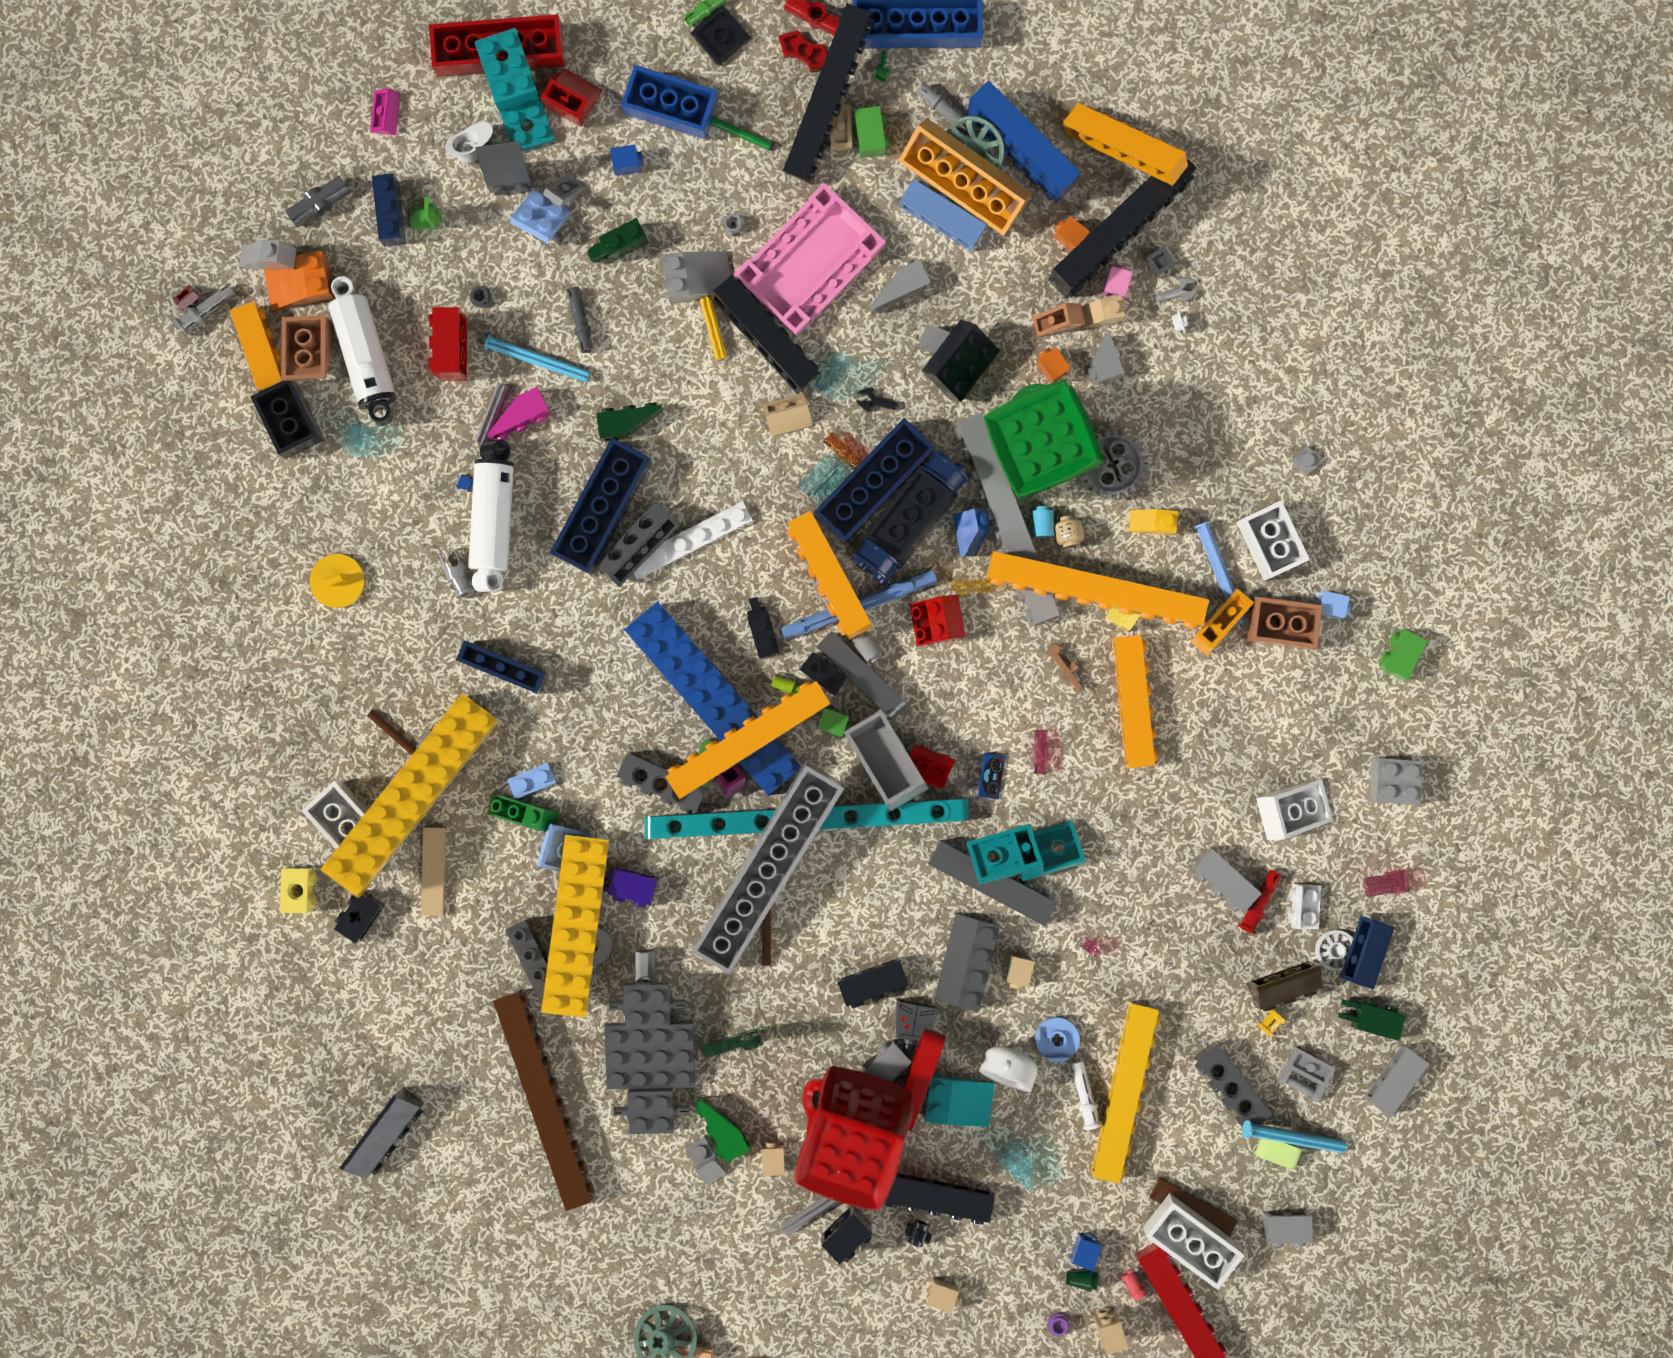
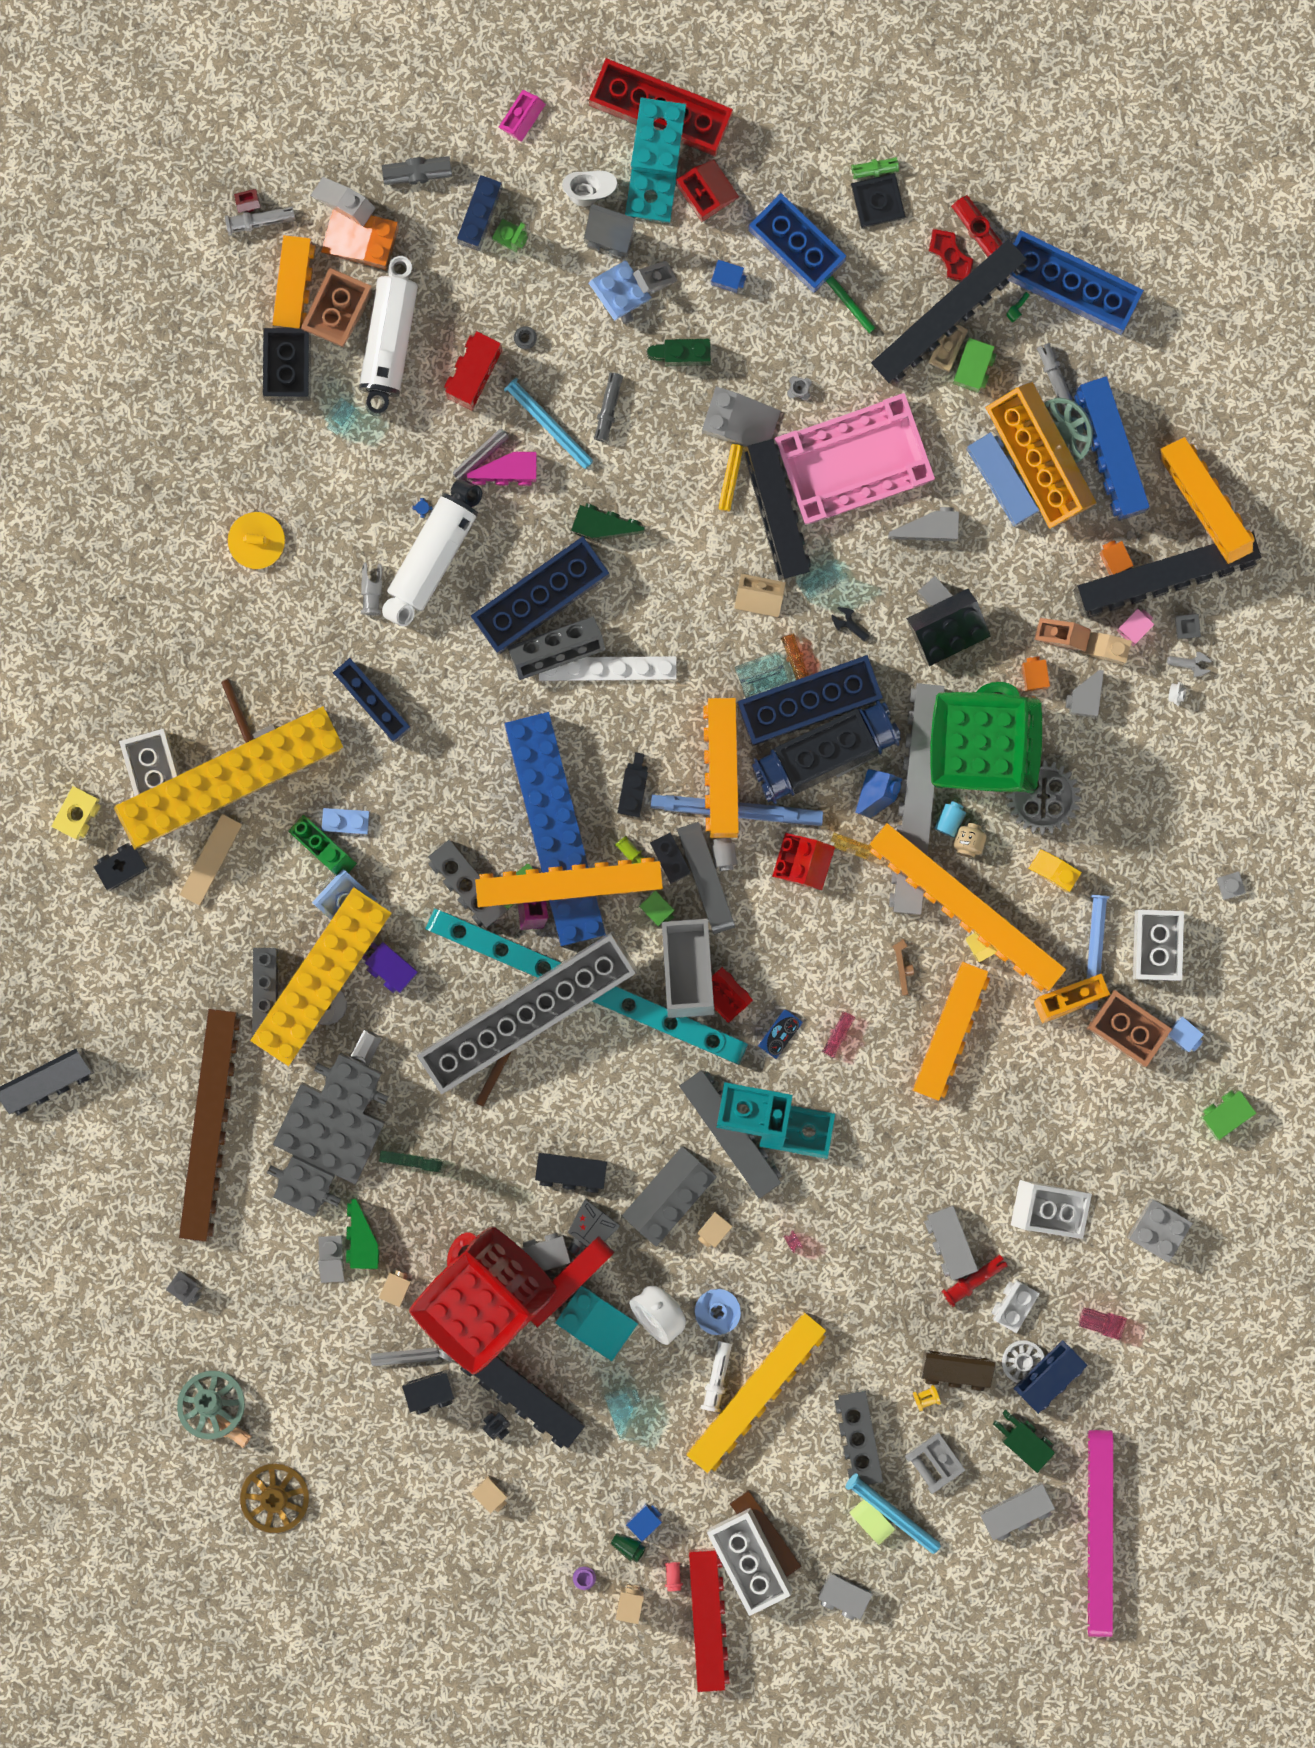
camera: 30 degrees right, 0 degrees up
(593, 1250) = (184, 1289): none -> flat silver bracket
(1476, 1063) = (1101, 1533): none -> dark pink beam

